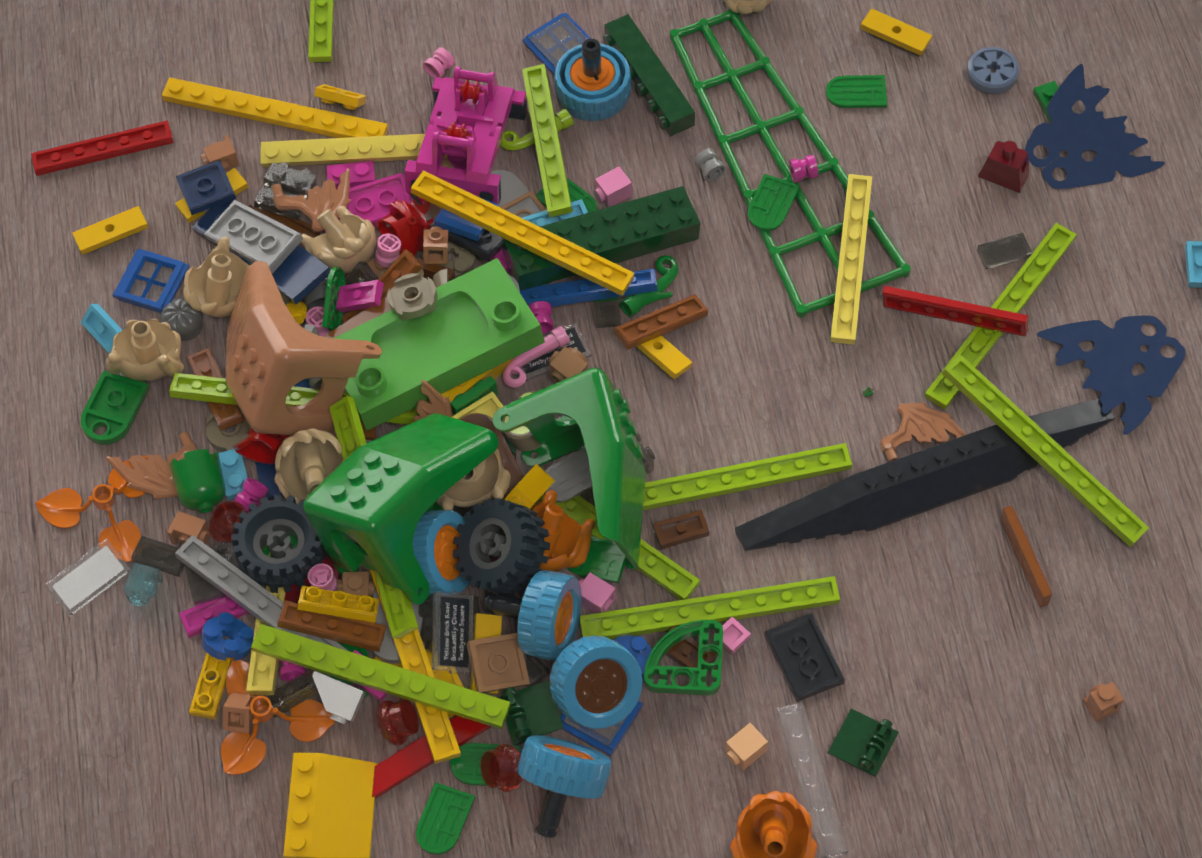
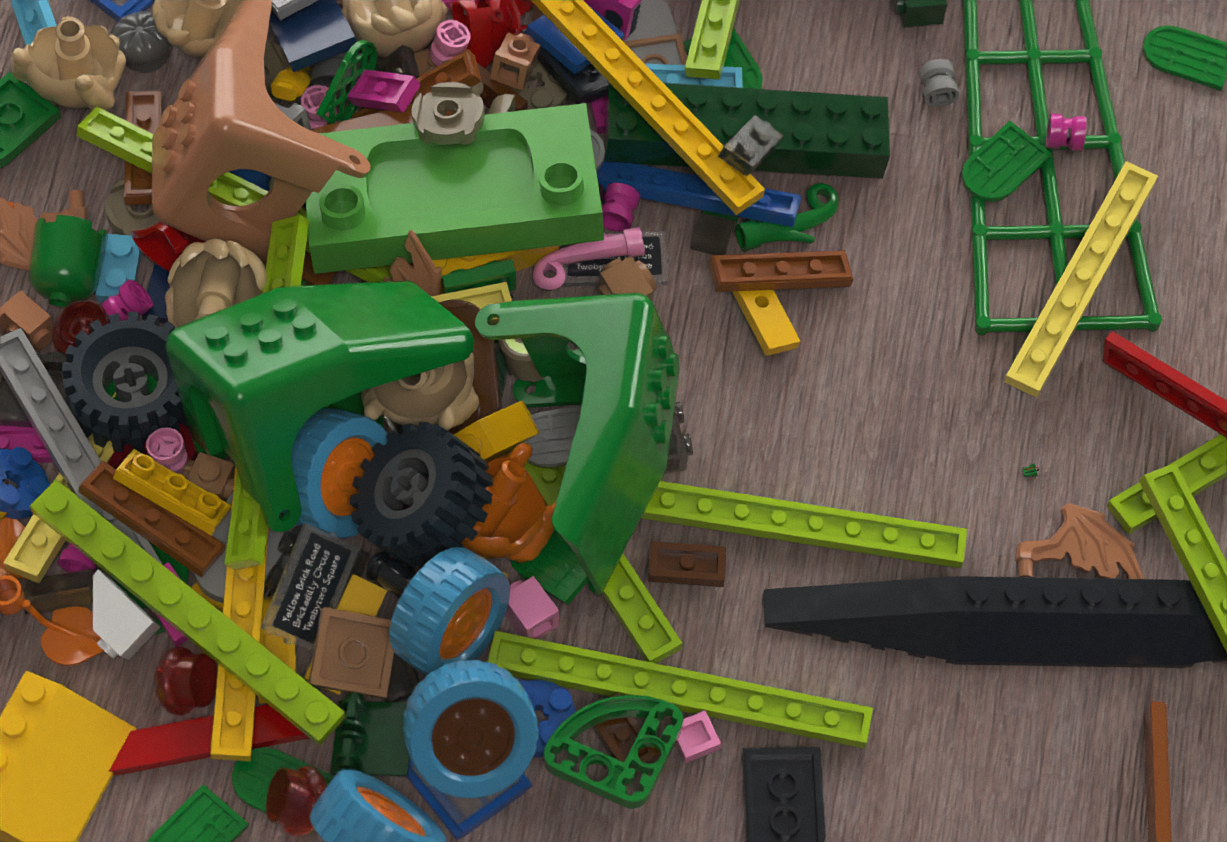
camera: 15 degrees right, 0 degrees up
(613, 187) = (793, 67): bright pink brick -> none
(613, 248) = (750, 145): none -> clear smoke plate

